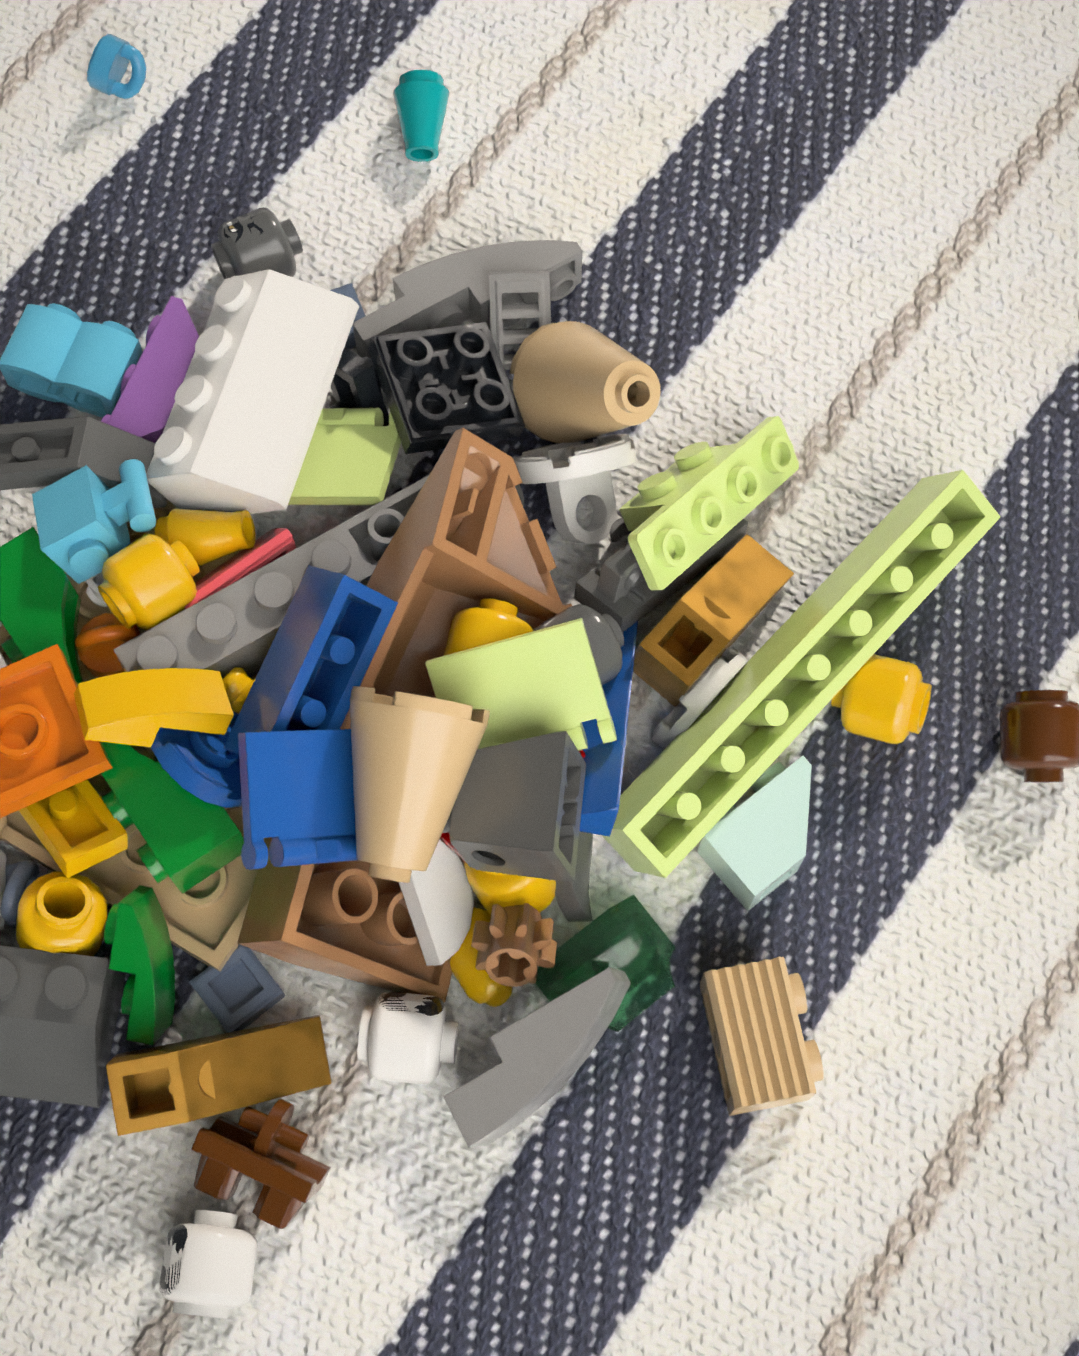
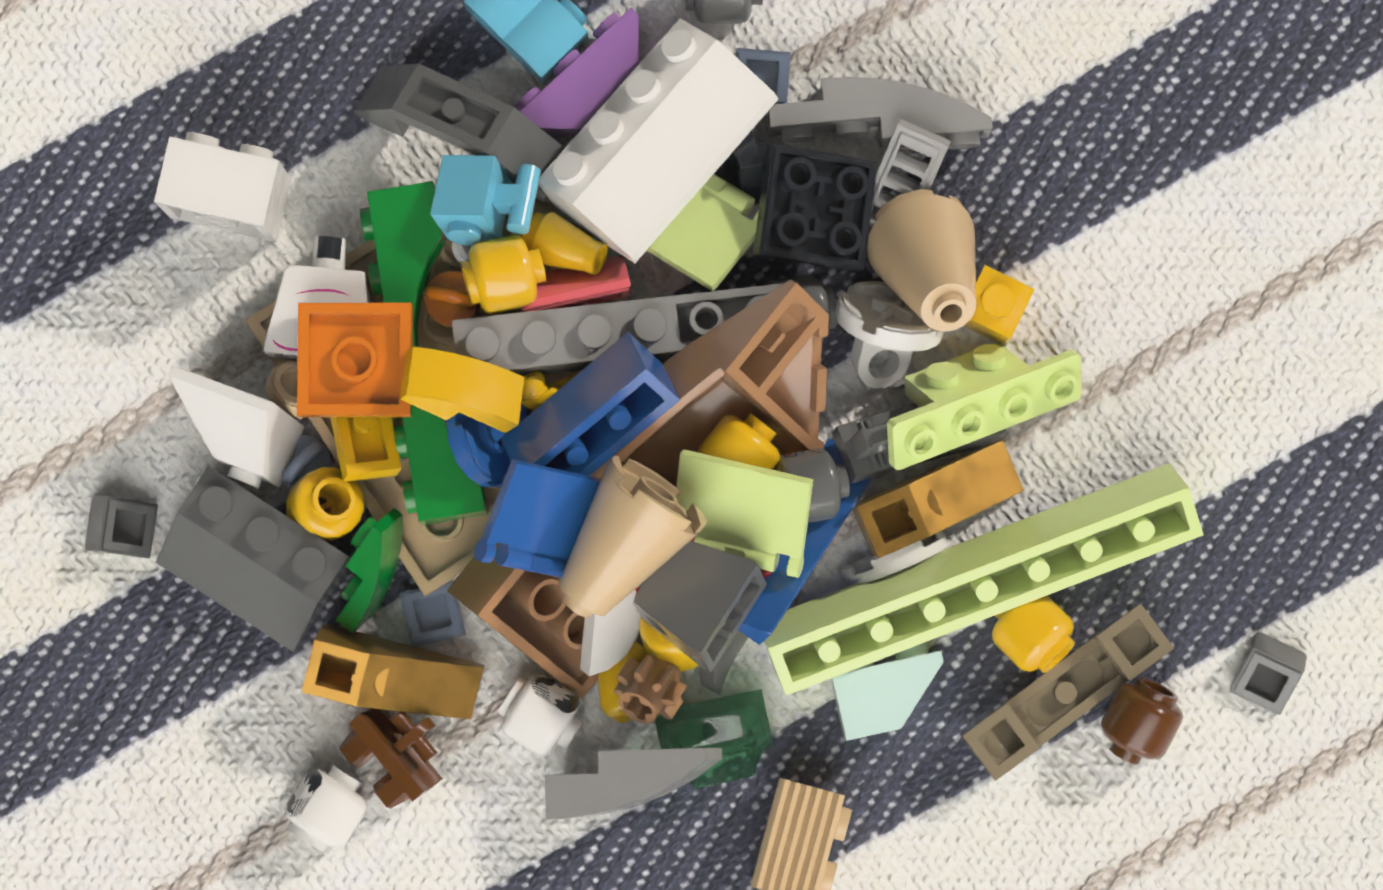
camera: 30 degrees right, 15 degrees up
(679, 414) = (998, 305): none -> yellow brick
(951, 742) = (1067, 691): none -> dark tan slope

